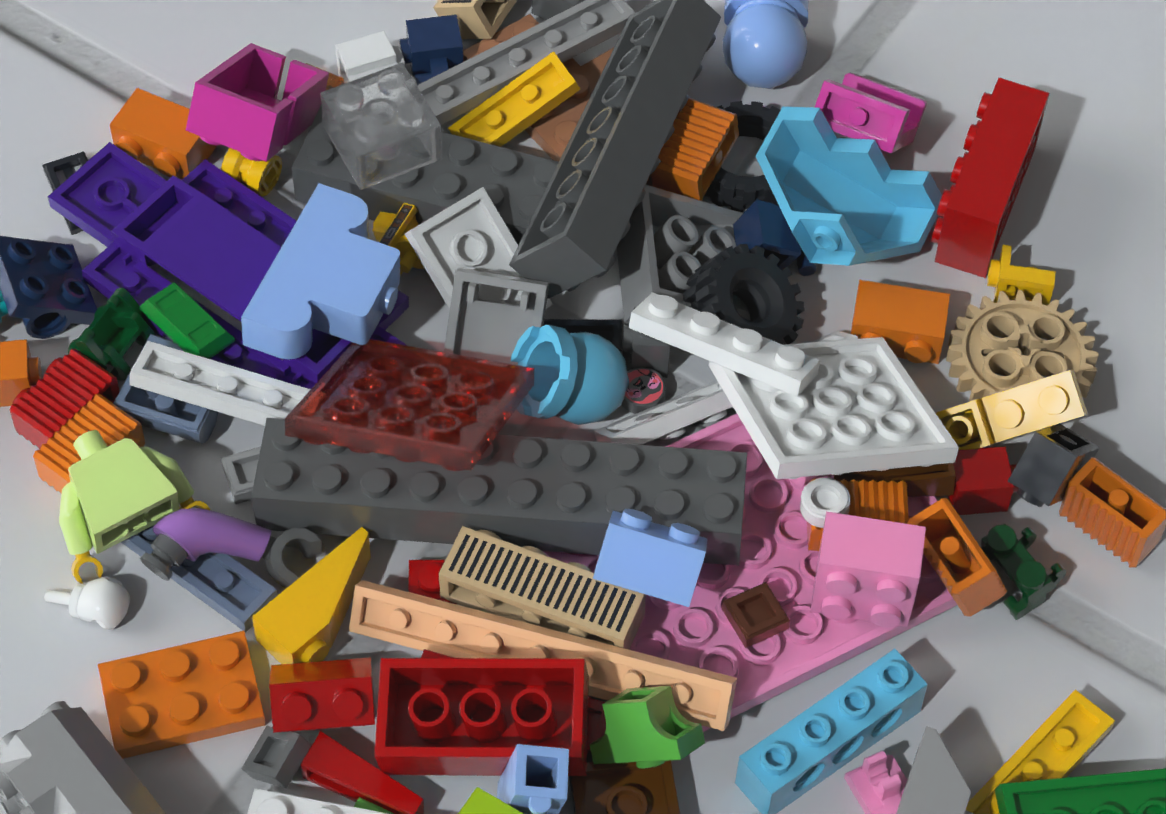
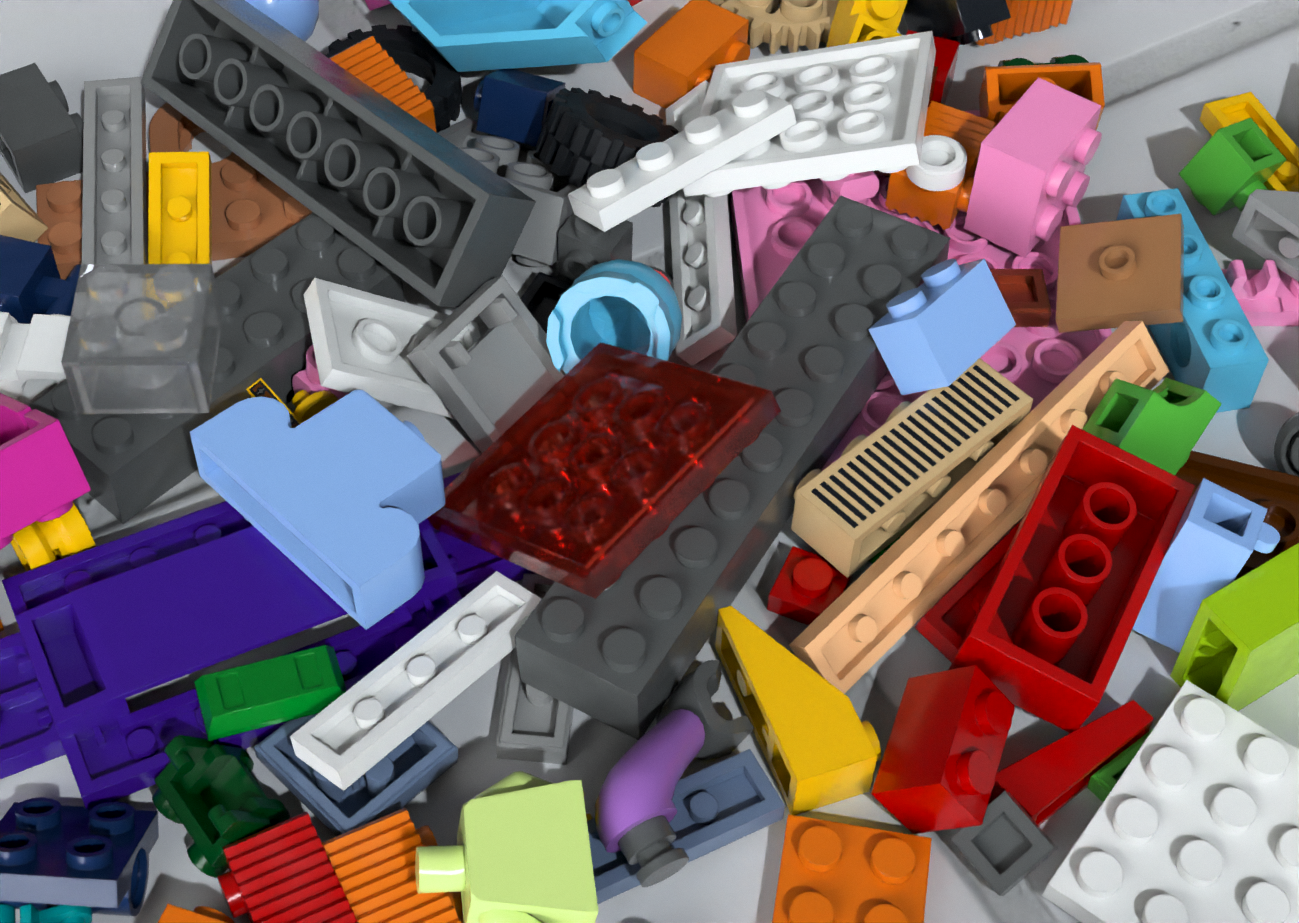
camera: 65 degrees left, 5 degrees down
(804, 669) = (1120, 273): none -> medium nougat plate
(996, 726) = (1232, 167): none -> bright green brick

